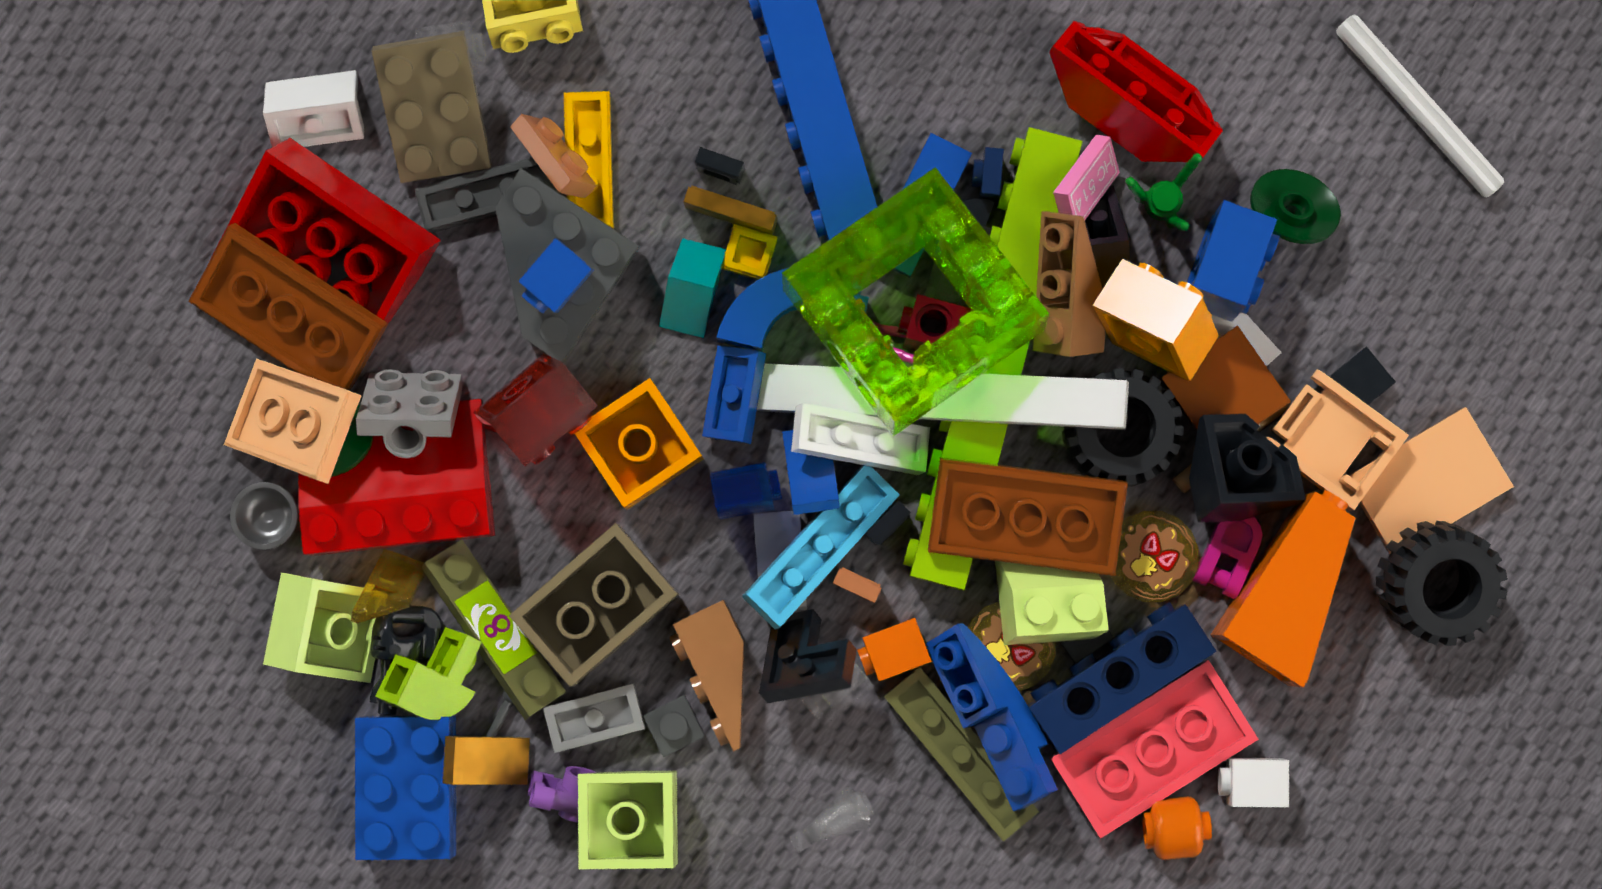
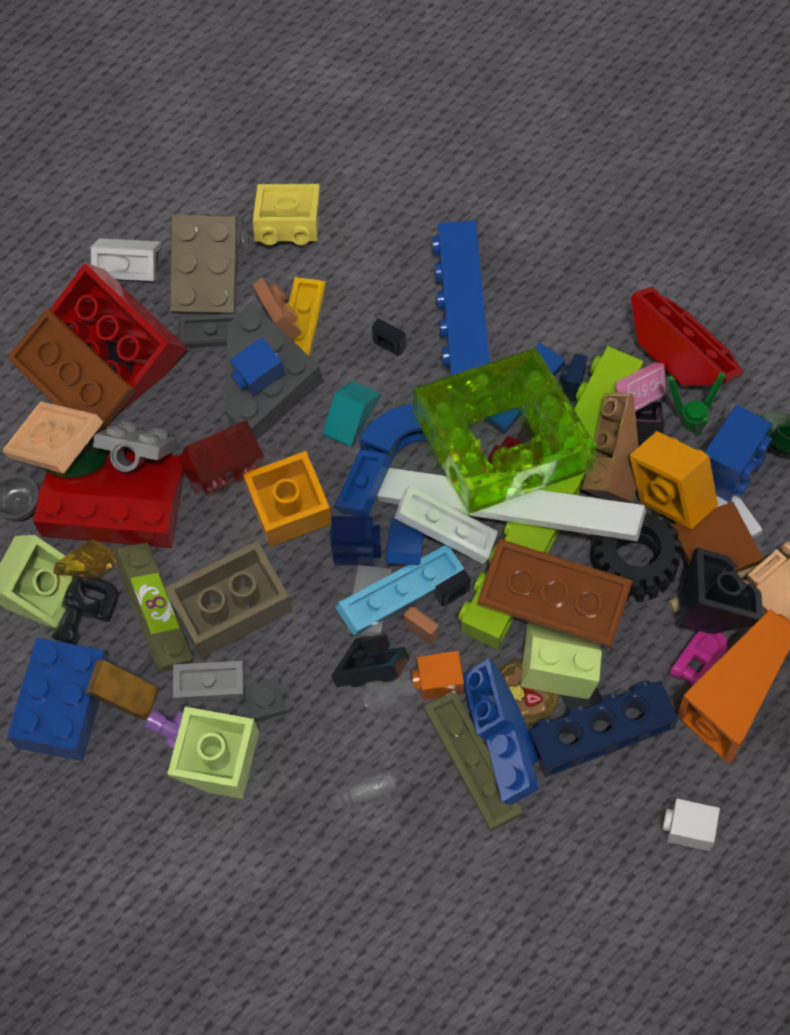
camera: 10 degrees right, 20 degrees down
(435, 688) = (96, 631): lime brick -> none
(717, 655) = (309, 656): medium nougat slope -> none
(730, 210) = (389, 365): pearl gold tile -> none
(749, 252) = (394, 395): yellow tile -> none
(1154, 748) = (618, 786): coral plate -> none
(1155, 557) = (643, 651): tile -> none
(1176, 828) = (624, 847): orange head -> none

